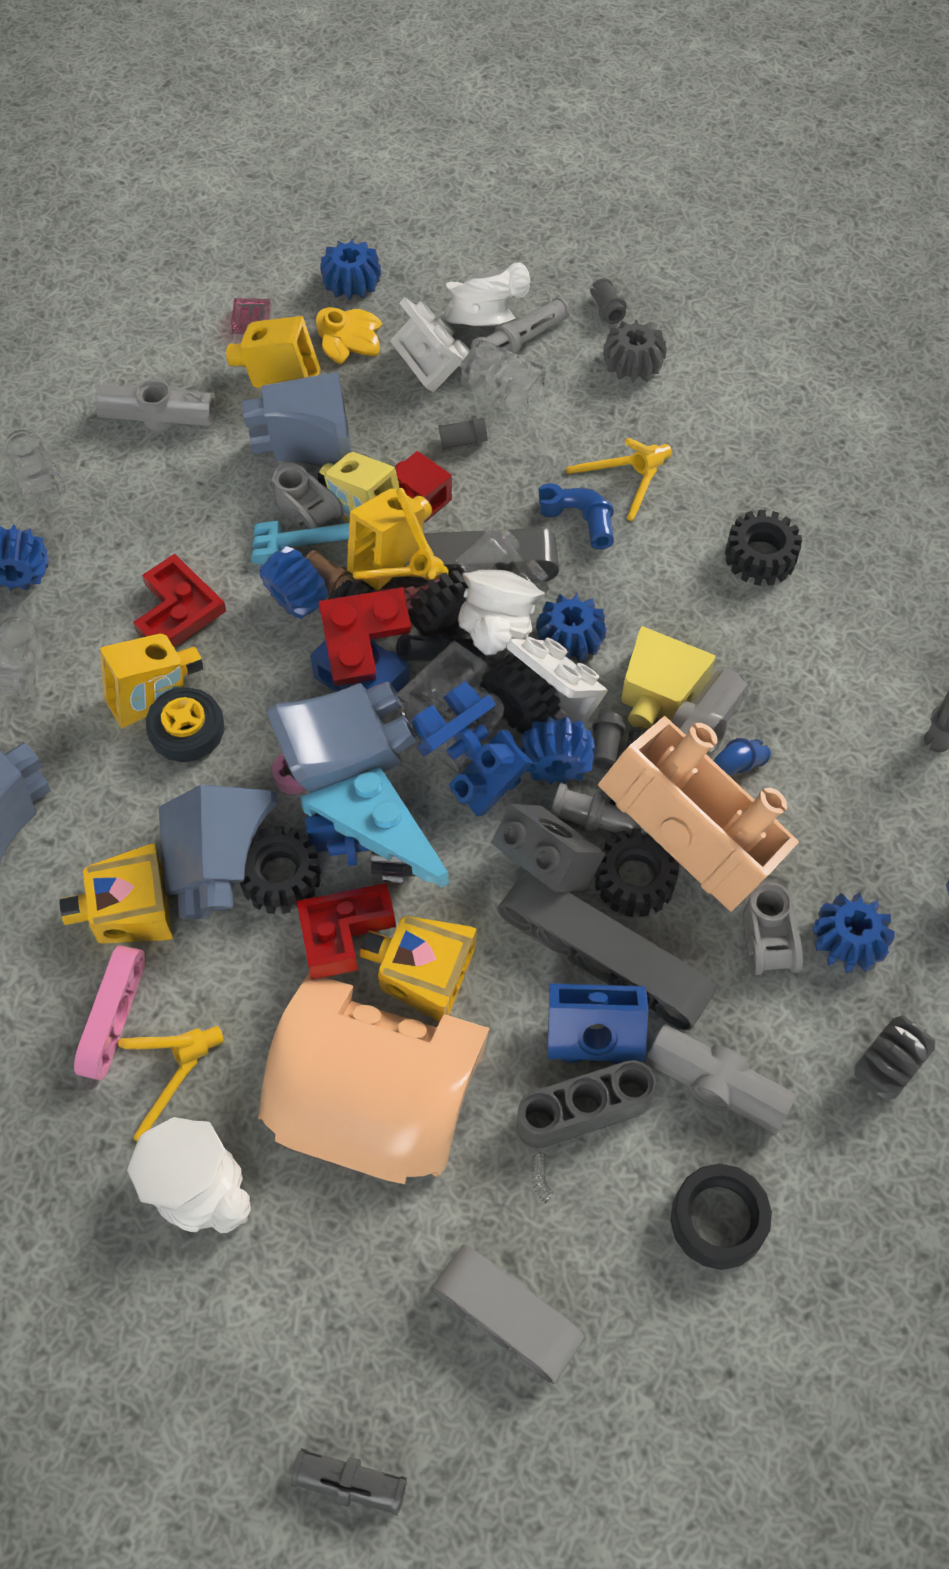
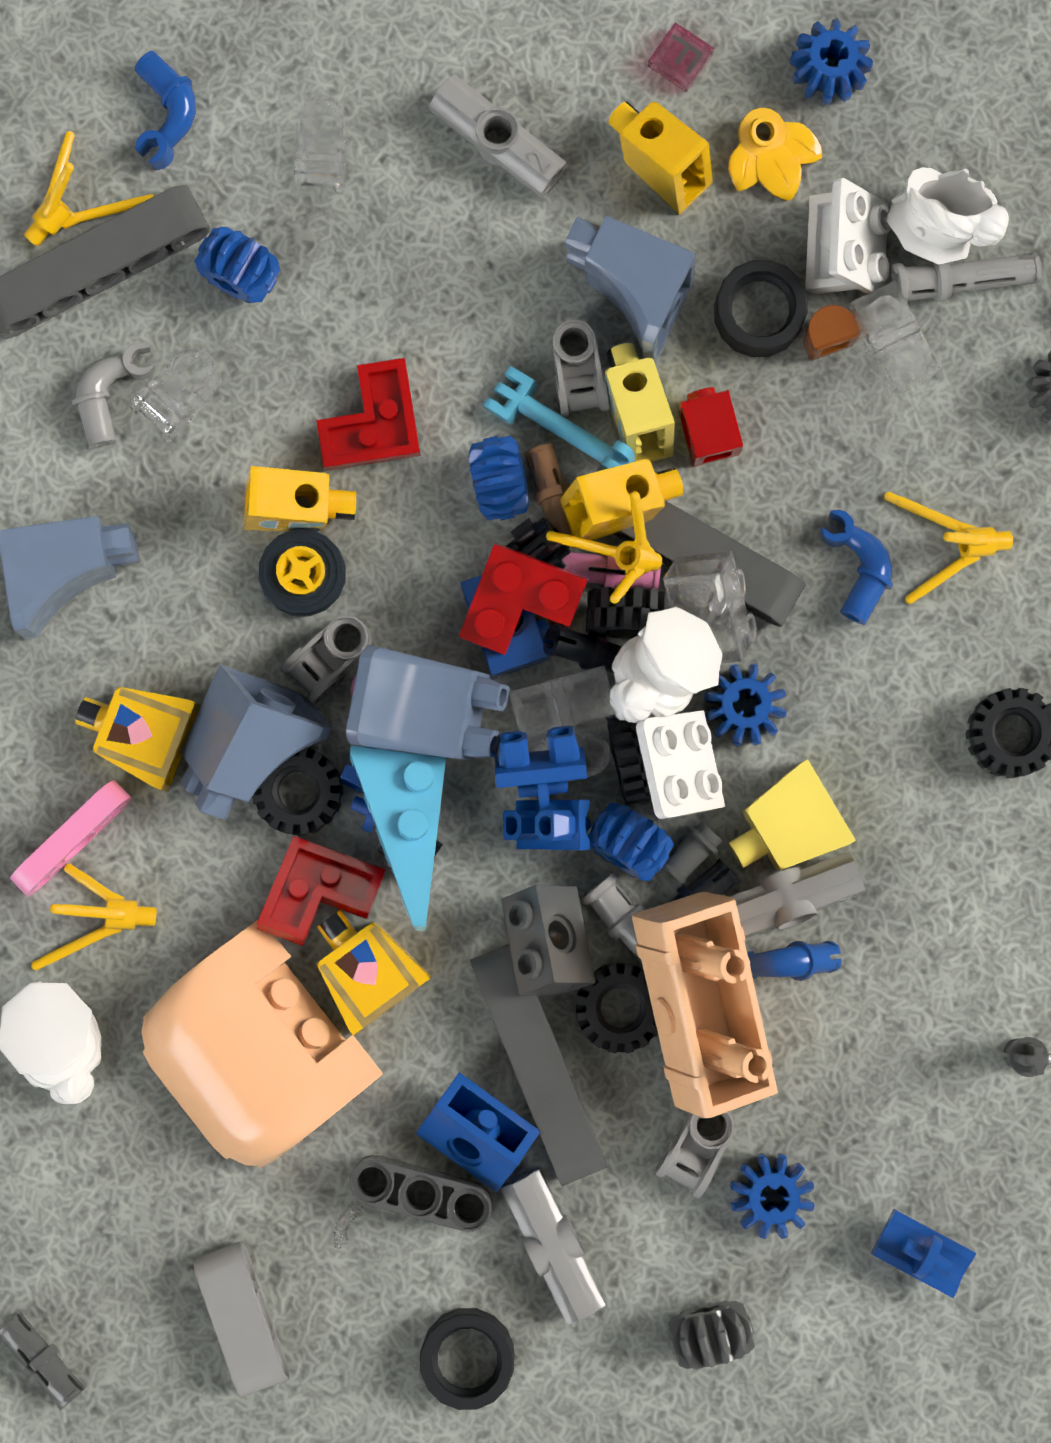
camera: 35 degrees right, 25 degrees up
(239, 765) = (326, 658): none -> light grey piece
(403, 388) = (774, 274): none -> black tyre
(460, 396) = (830, 331): none -> dark orange brick
(463, 433) = (804, 381): dark grey pin -> none

